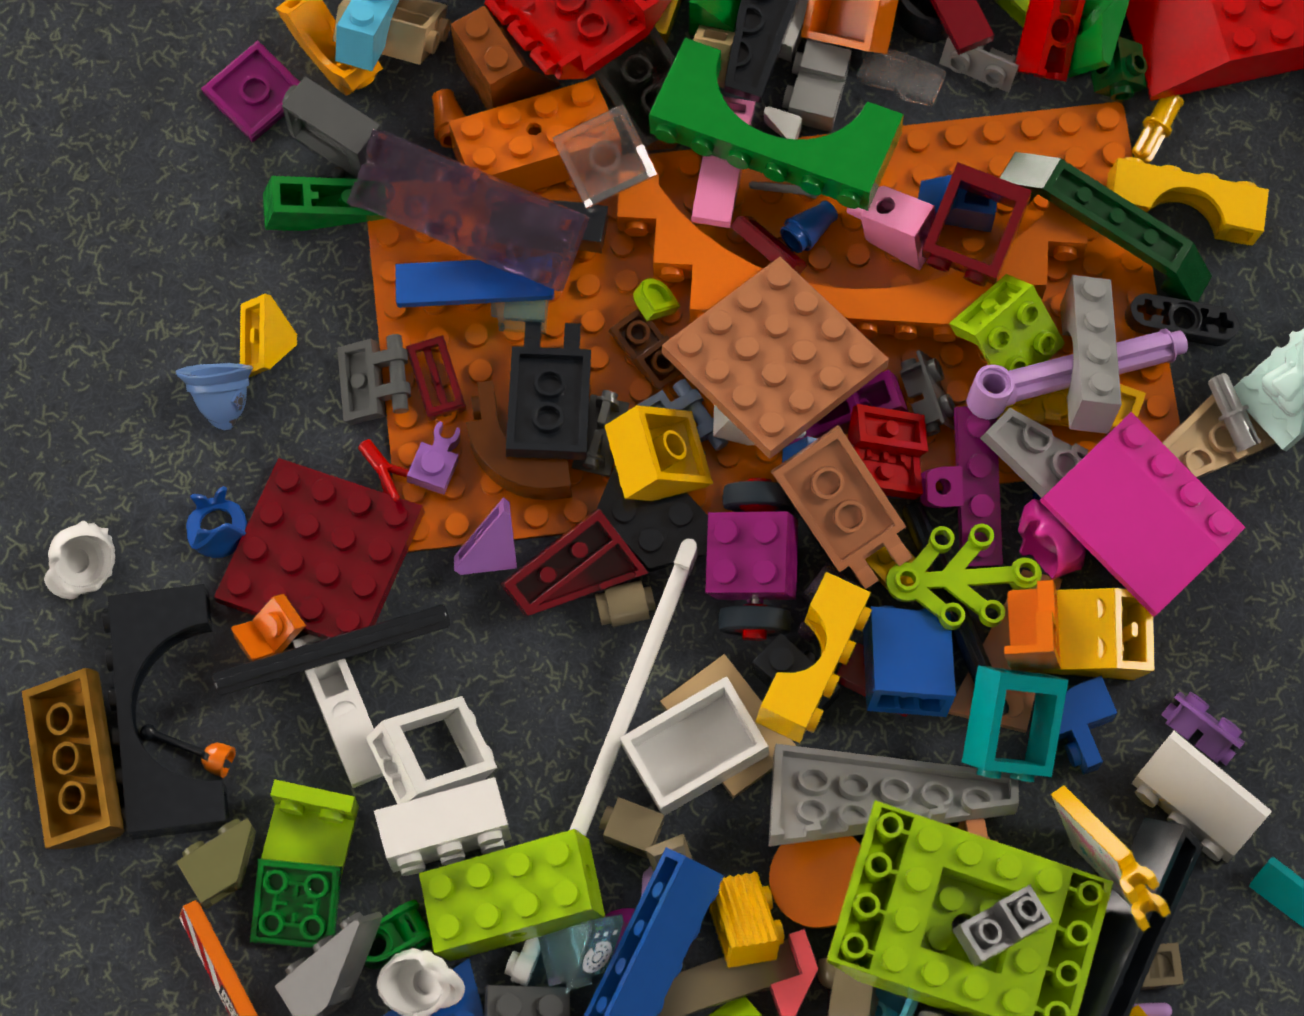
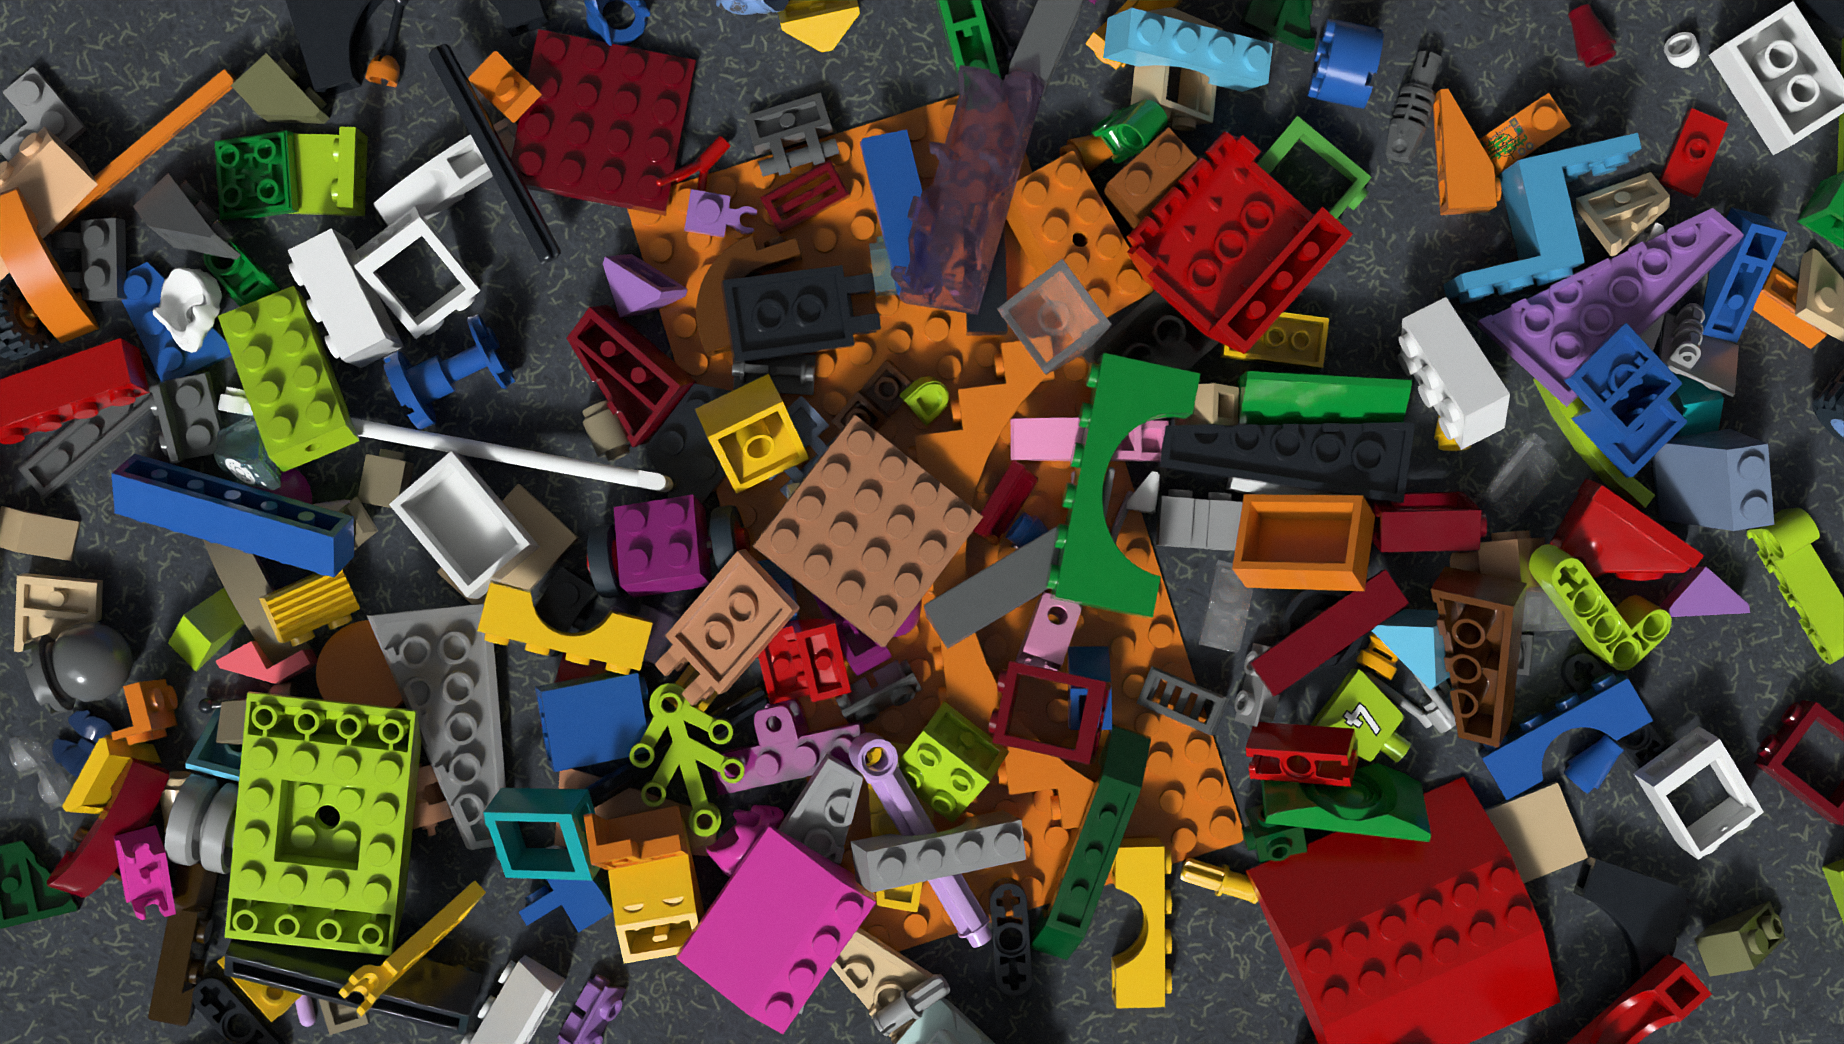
camera: 80 degrees right, 15 degrees up
(441, 67) = (1131, 128): none -> green piece
(540, 754) = (433, 378): none -> blue piece
(852, 258) = (993, 591): none -> dark grey slope
(998, 99) = (1216, 712): none -> dark grey slope
(1002, 925) = (314, 856): flat silver slope -> none

